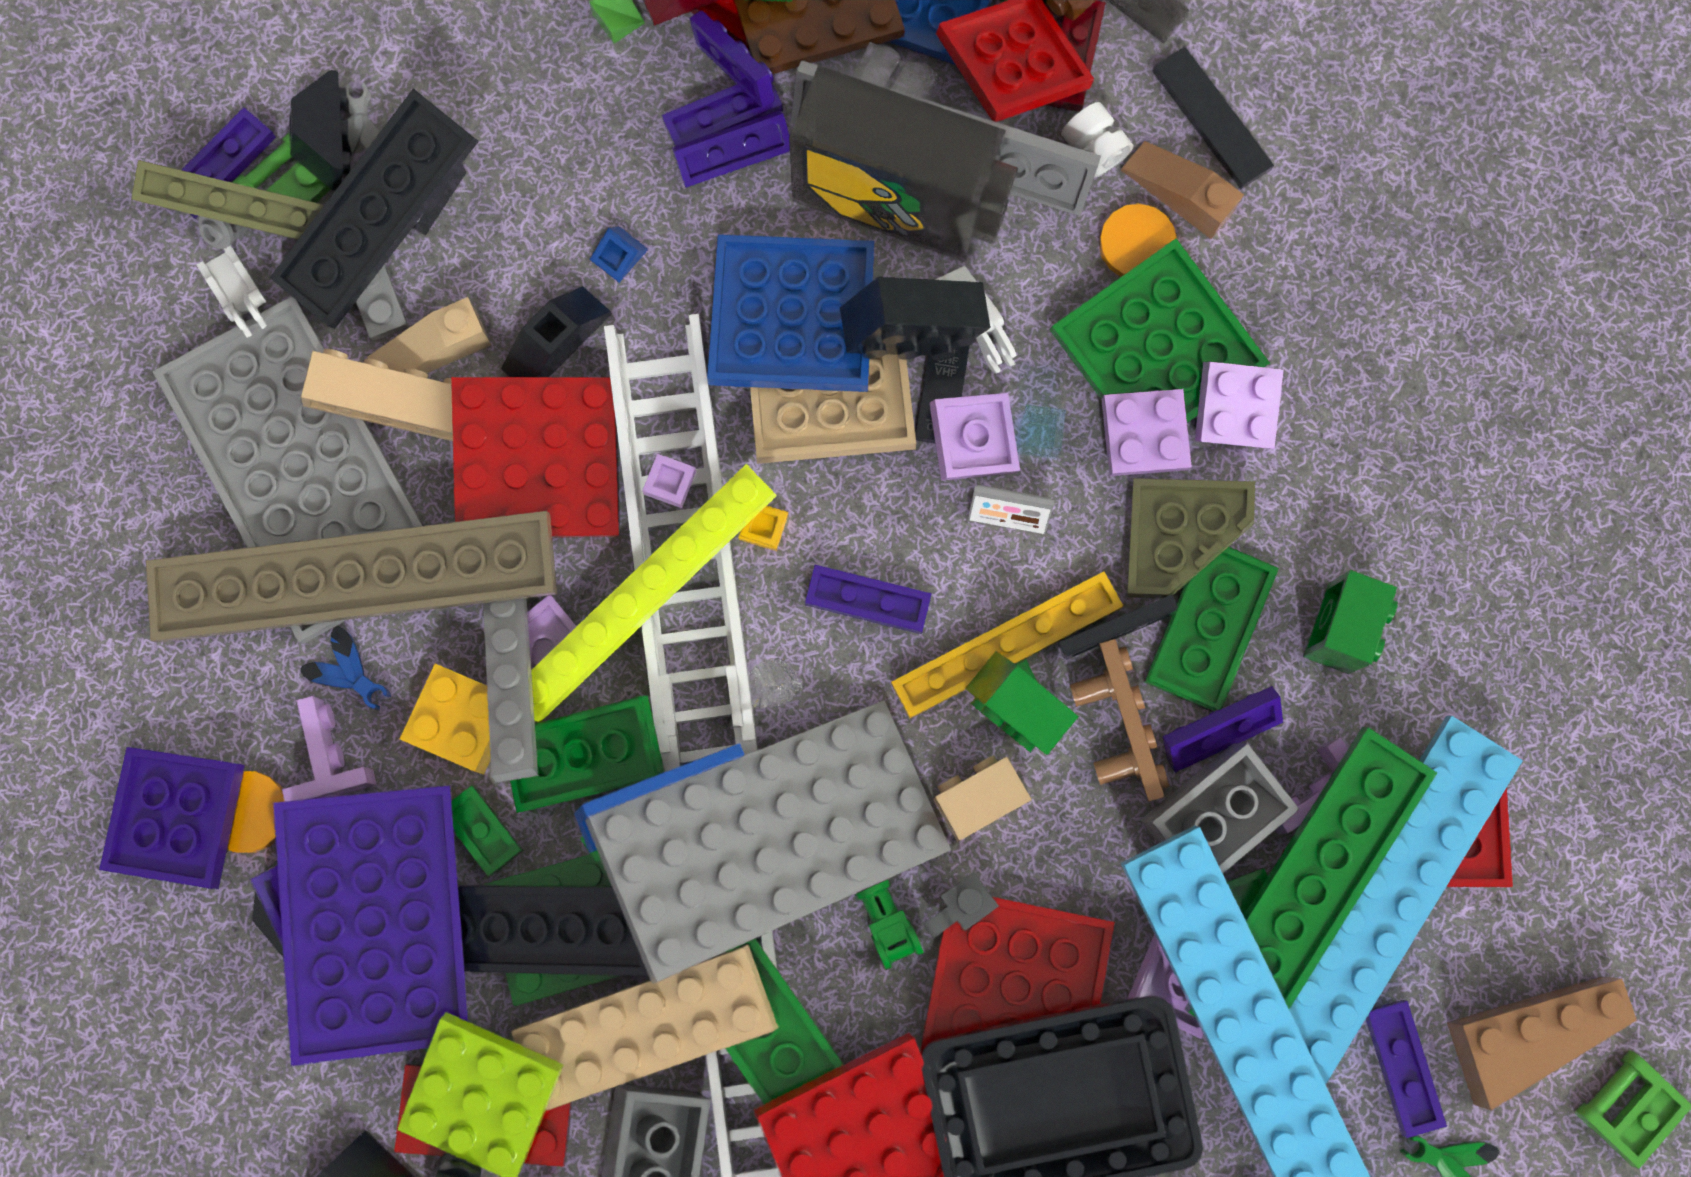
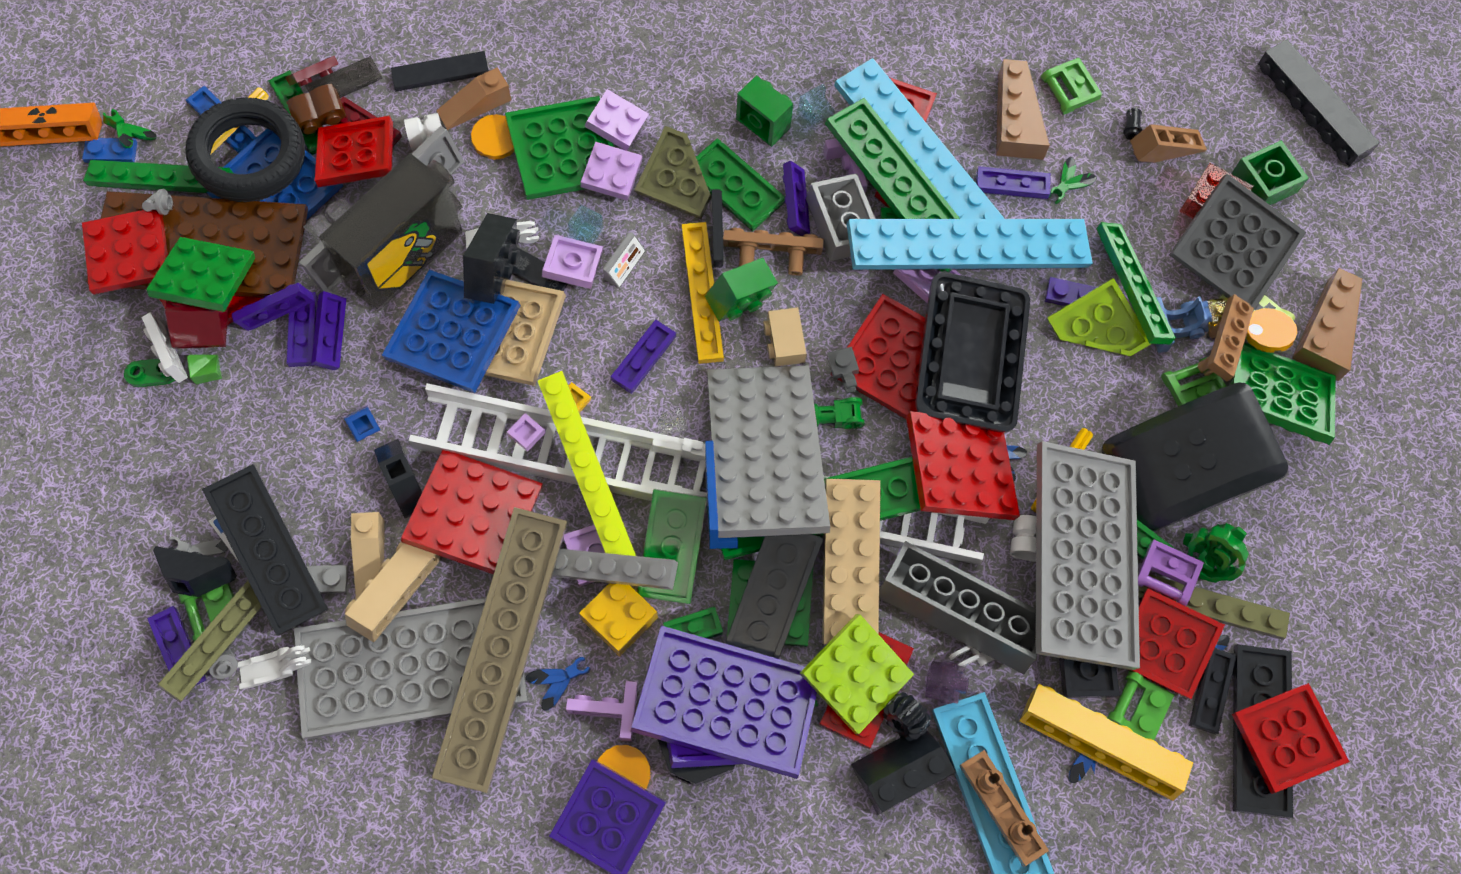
camera: 70 degrees left, 10 degrees down
(1404, 699) = (814, 105): none -> clear light blue panel

